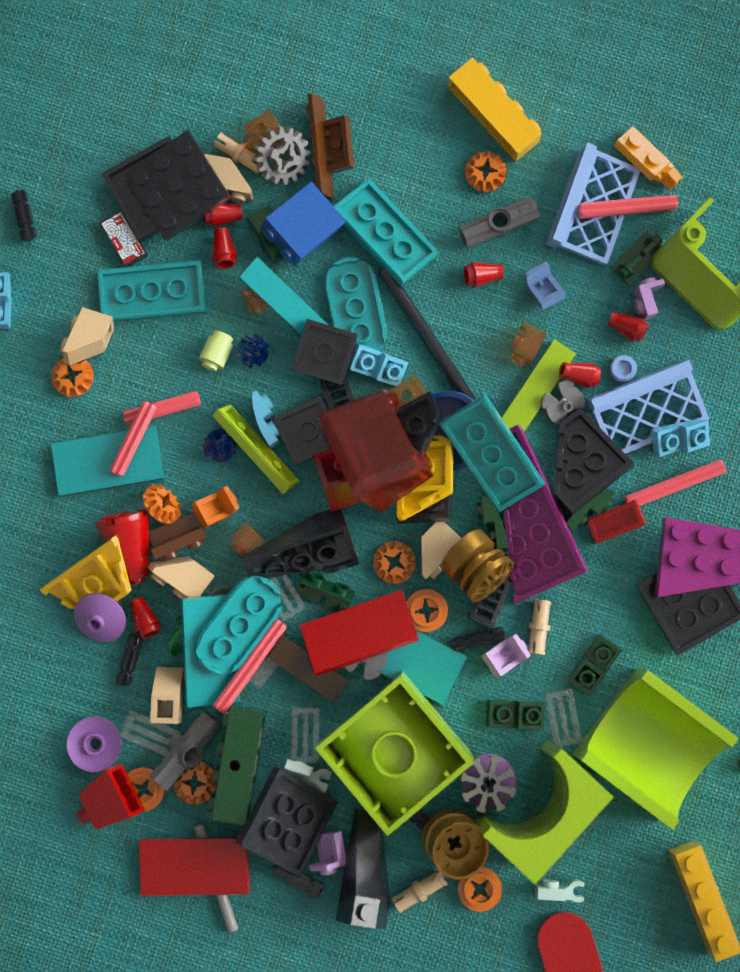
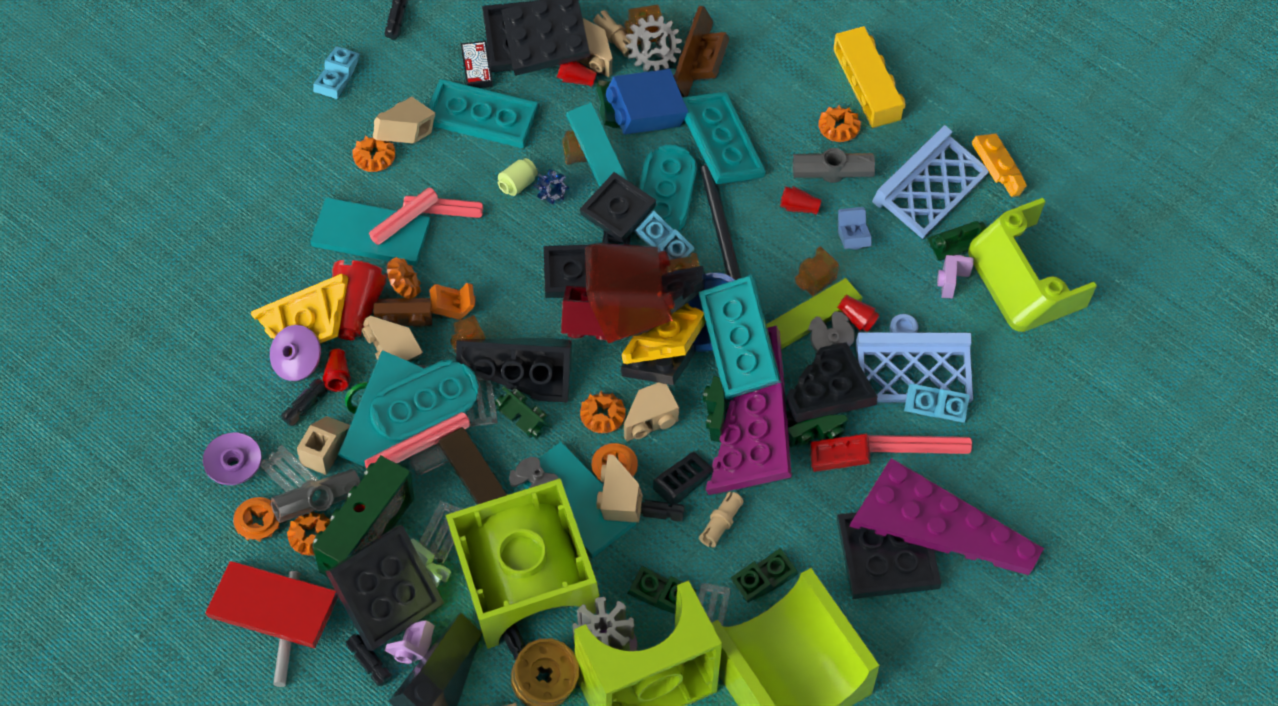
camera: 20 degrees right, 25 degrees down
(109, 799) = (221, 508): red torso -> none
(219, 445) = (481, 251): clear blue gear -> none
(223, 249) = (563, 101): red cone -> none
(256, 448) = (515, 267): lime tile -> none
(262, 412) = (536, 240): medium azure slope -> none
(359, 633) = (538, 451): red tile -> none
(448, 645) = (621, 493): none -> tan slope
(477, 565) = (682, 430): pearl gold wheel -> none
(506, 655) = (676, 531): lavender bracket -> none
(627, 206) = (962, 192): coral axle -> none
(629, 326) = (926, 293): red cone -> none

